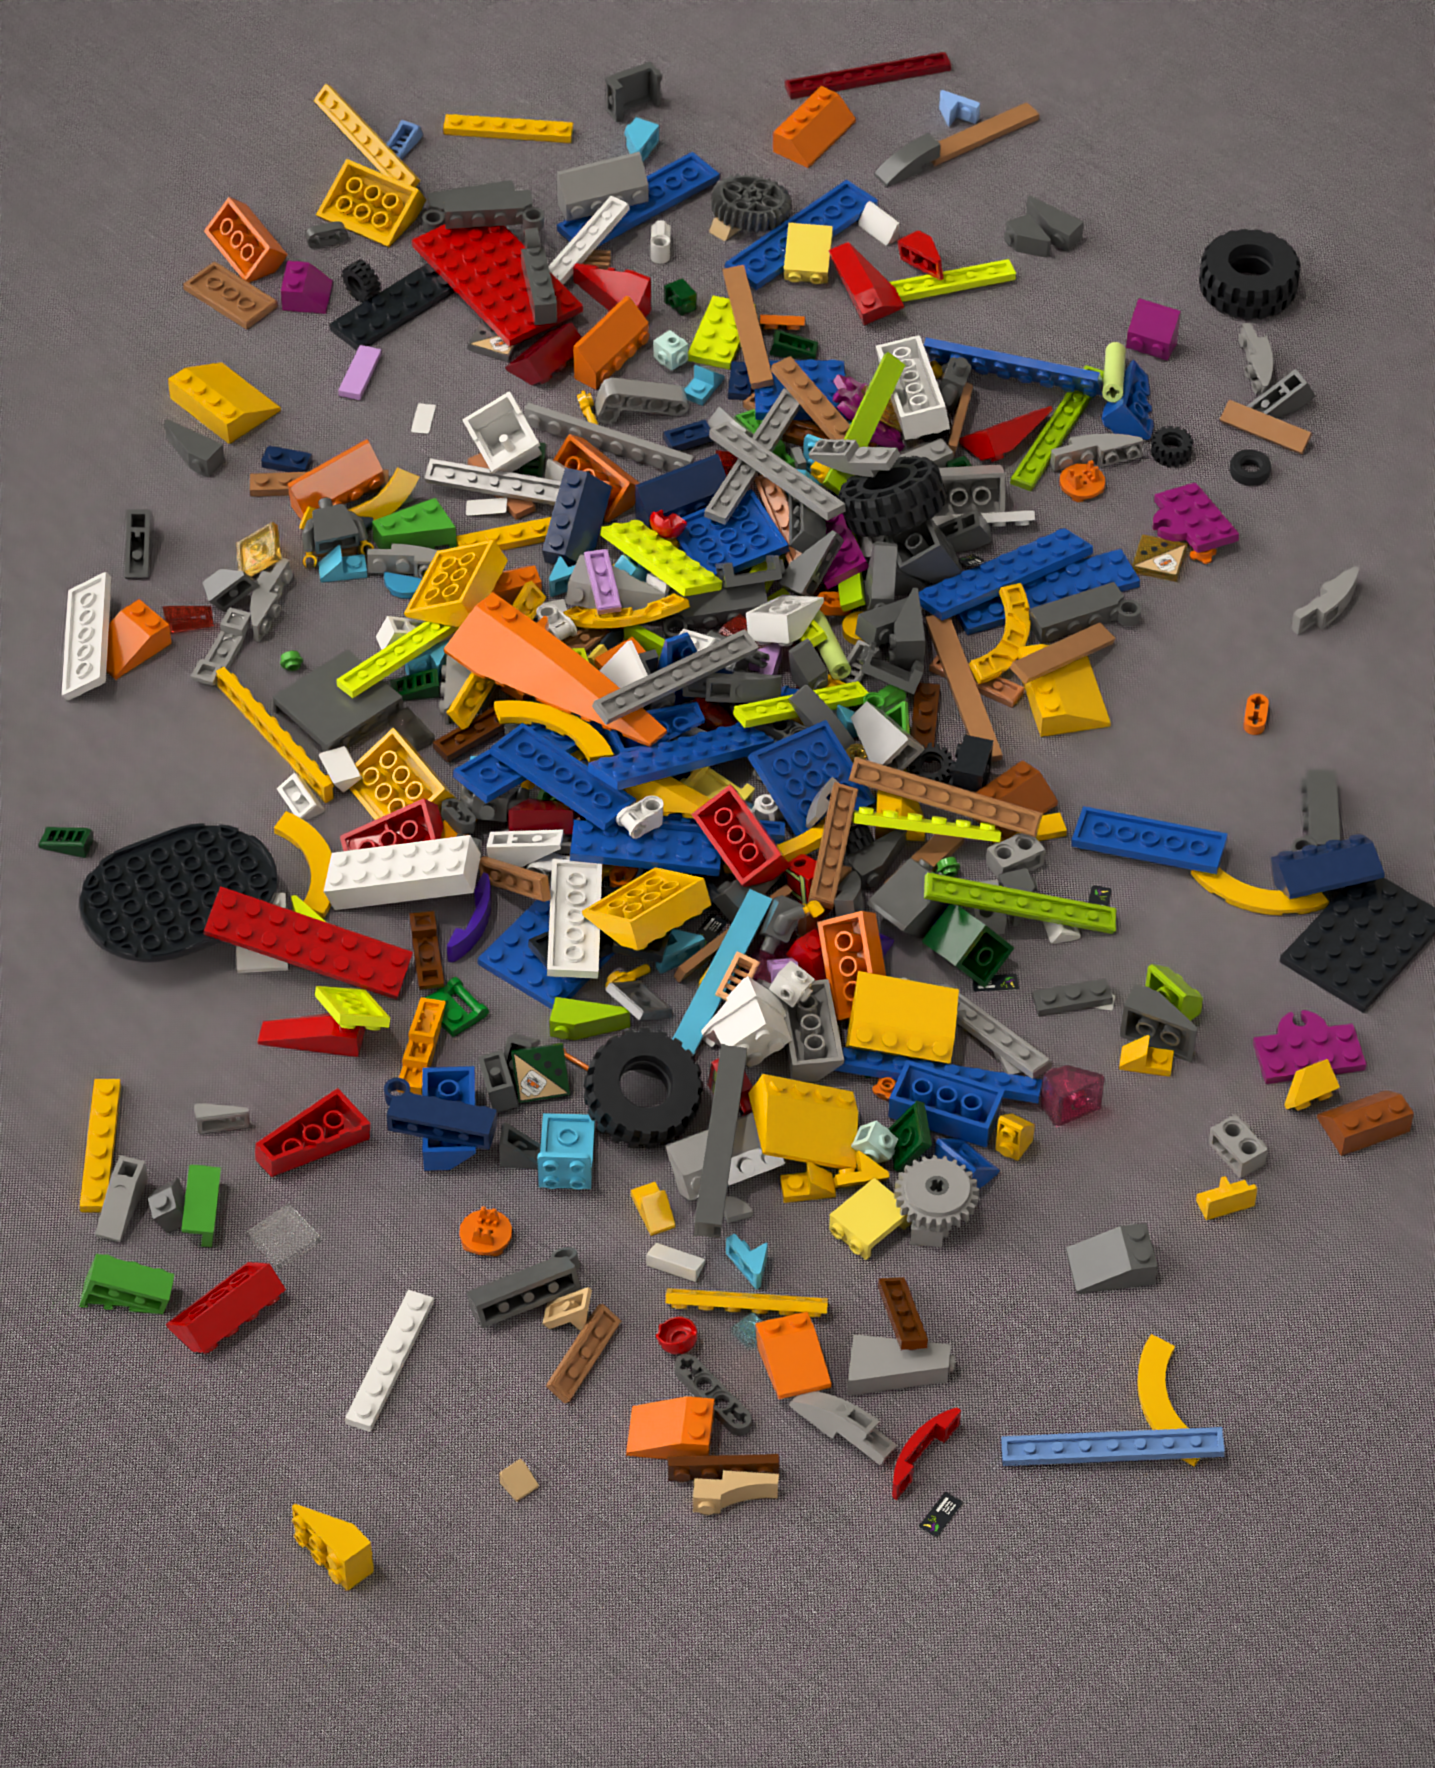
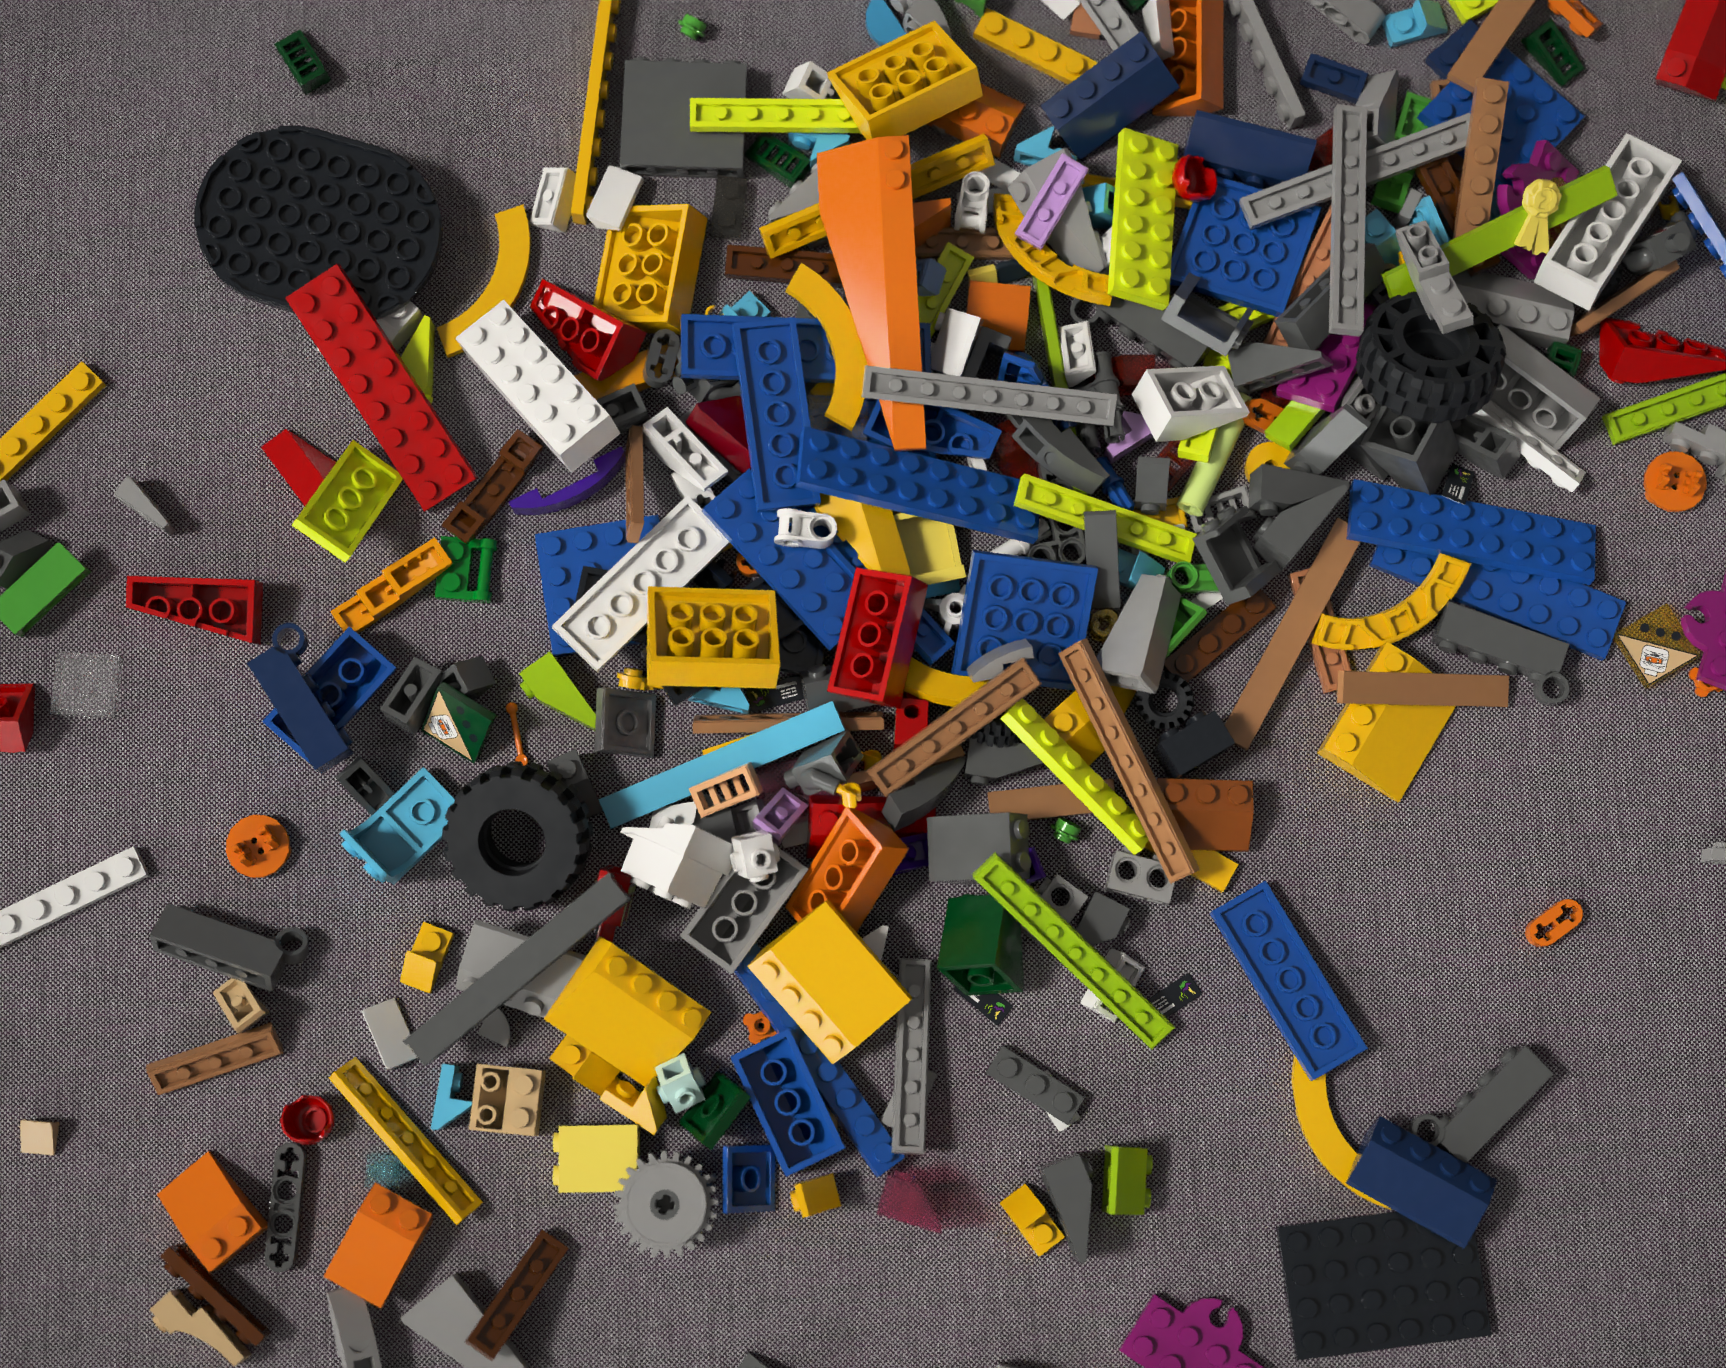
camera: 40 degrees right, 30 degrees up
(787, 1227) = (507, 1100): none -> tan slope
(870, 390) = (1539, 201): none -> light yellow piece

